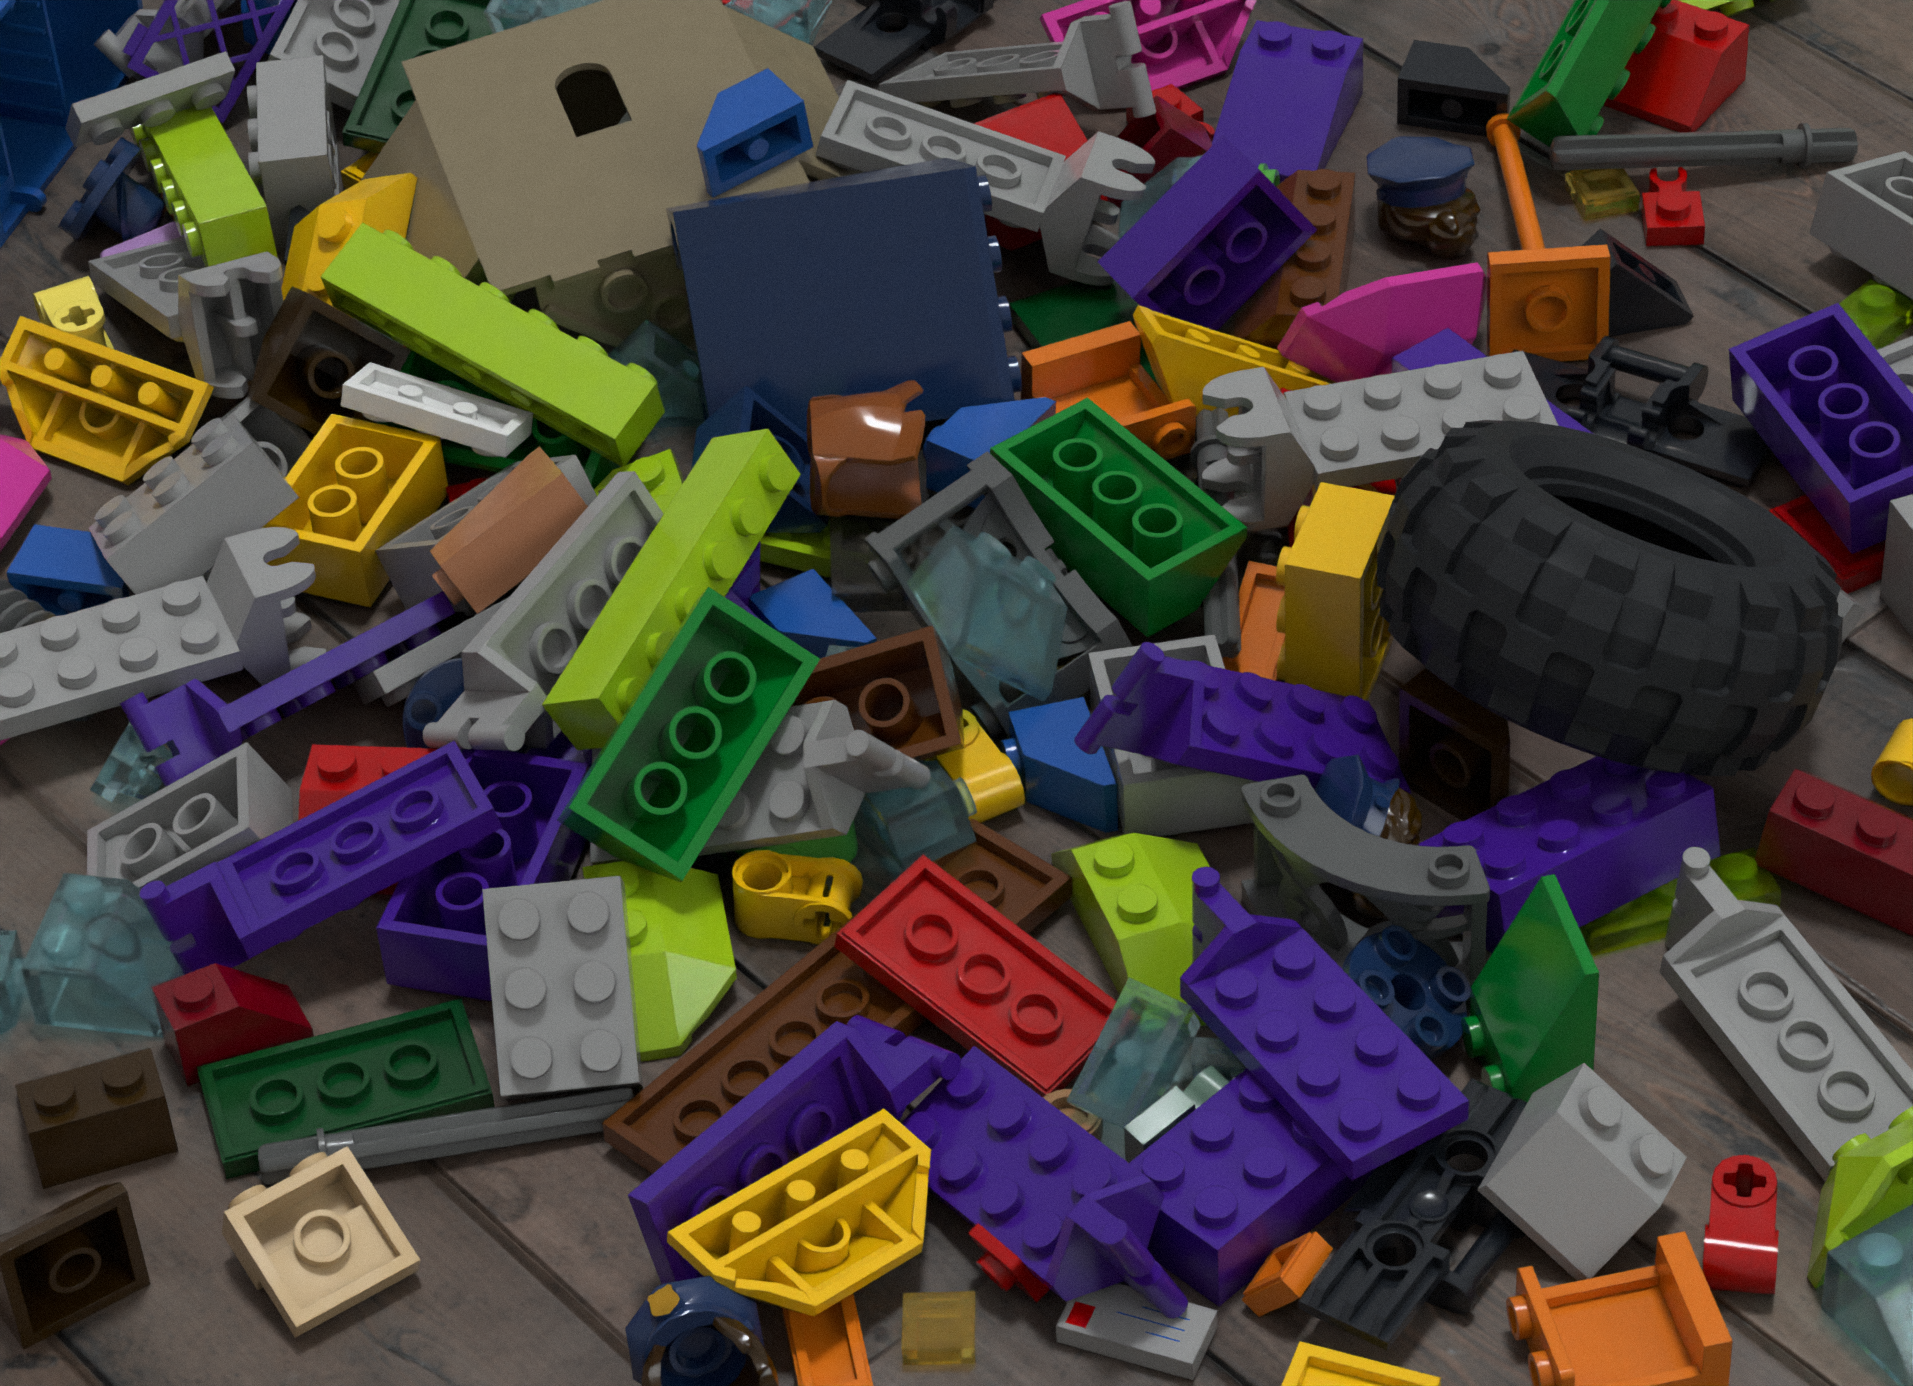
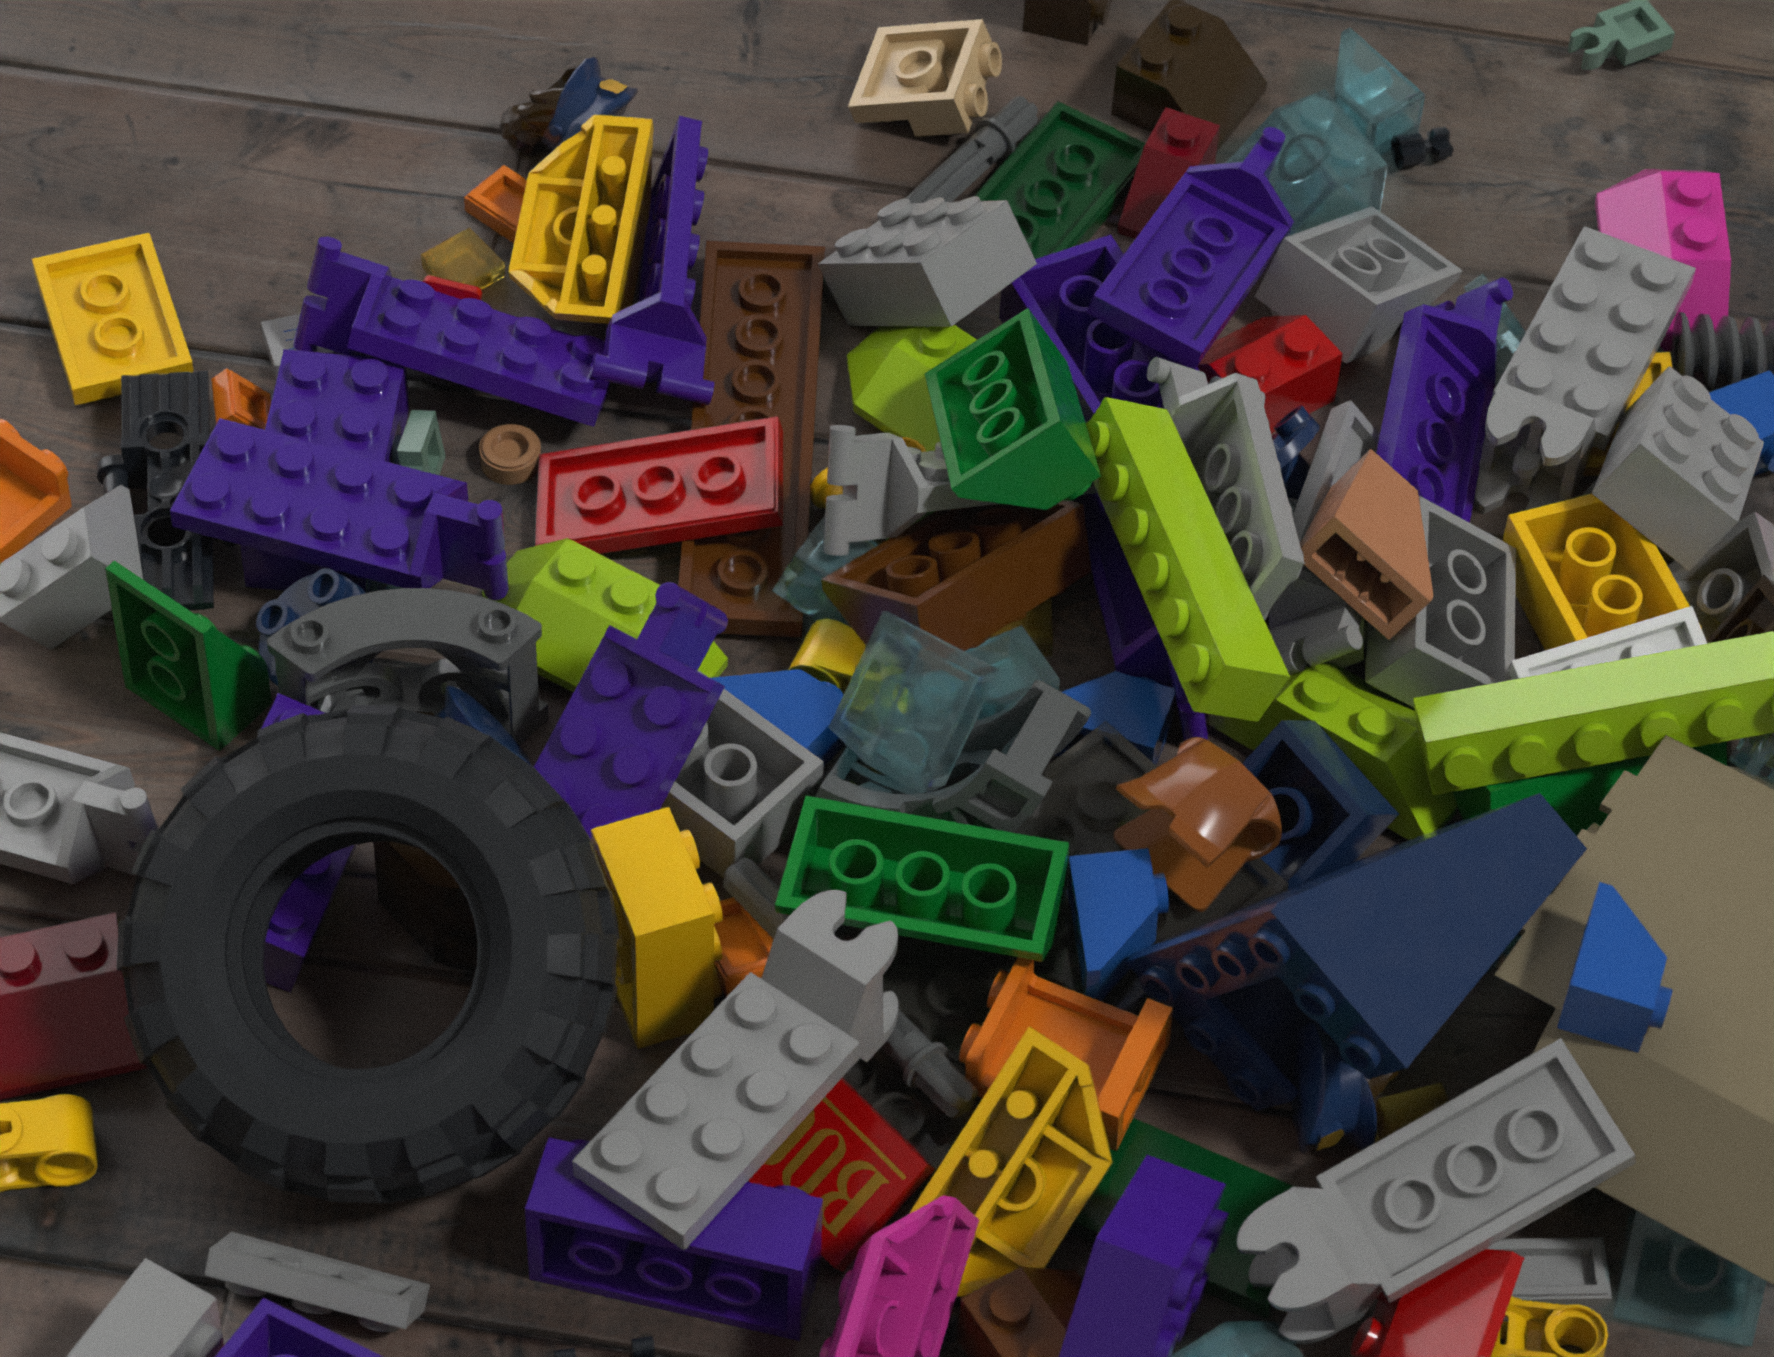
camera: 135 degrees right, 10 degrees up
(1135, 1055) = (492, 475): clear light blue slope -> none

